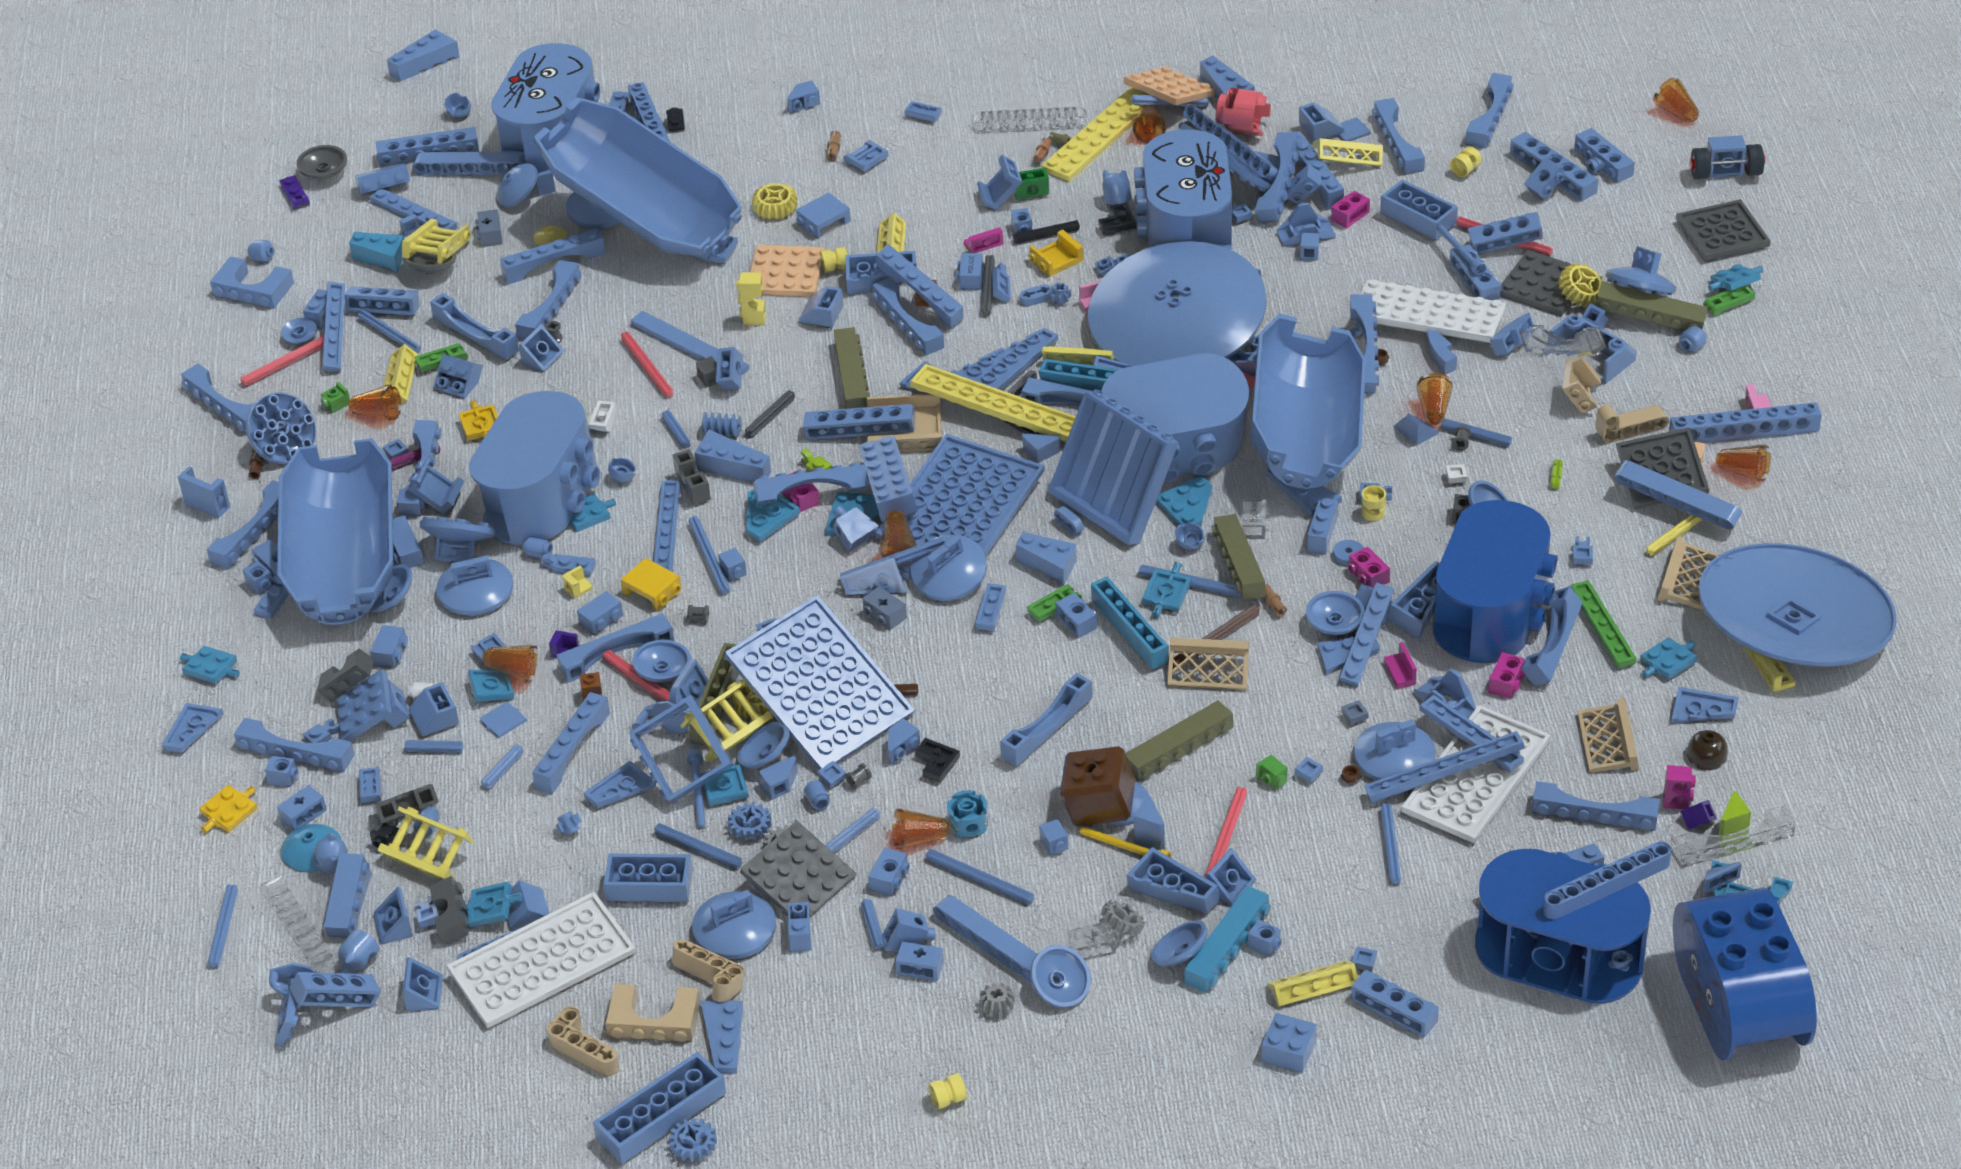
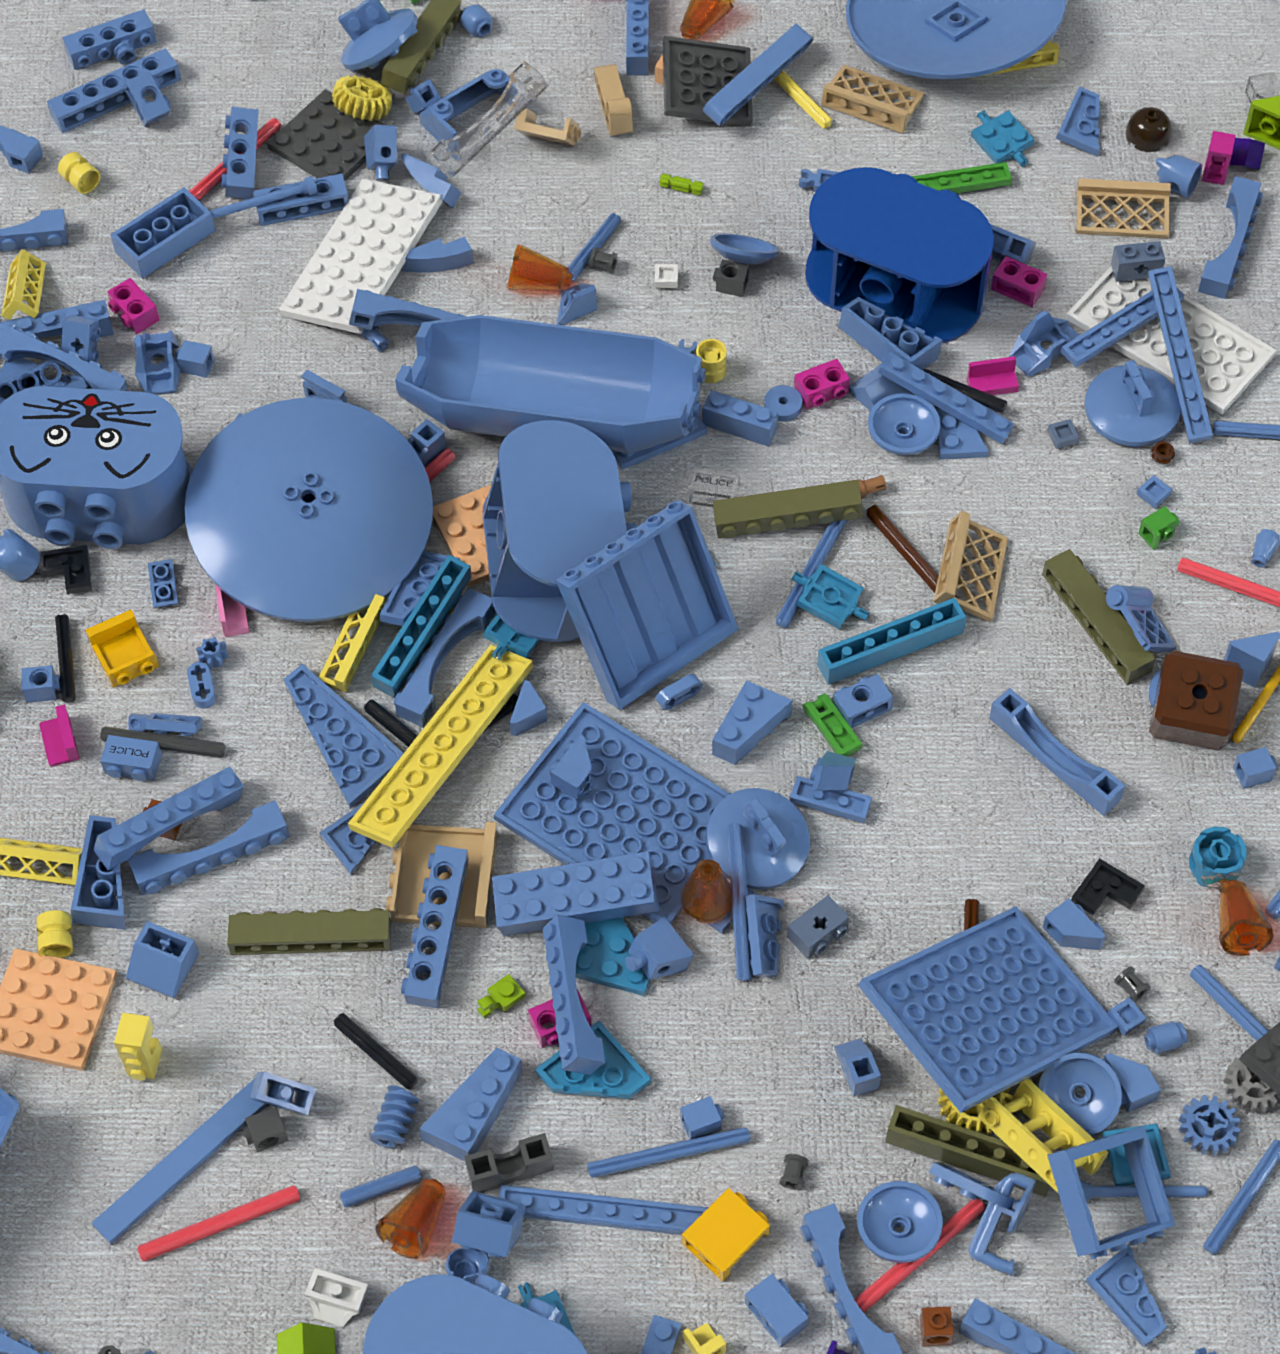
camera: 85 degrees left, 15 degrees up
(646, 468) = (488, 1224): none -> medium blue brick
(651, 440) = (413, 1219): none -> clear orange cone
(984, 462) = (573, 770): none -> medium blue slope
(1007, 598) = (832, 772): none -> medium blue slope
(1188, 750) = (1135, 605): none -> medium blue piece
(1189, 536) = (736, 559): medium blue hair -> none
(1269, 839) = (1265, 546): none -> medium blue cone
(1294, 305) = (317, 387): none -> medium blue plate
(1382, 650) = (979, 396): none -> black axle
(1529, 300) = (381, 150): none -> medium blue torso
(1539, 736) = (1135, 260): none -> sand blue brick
(1654, 763) = (1180, 172): none -> medium blue piece

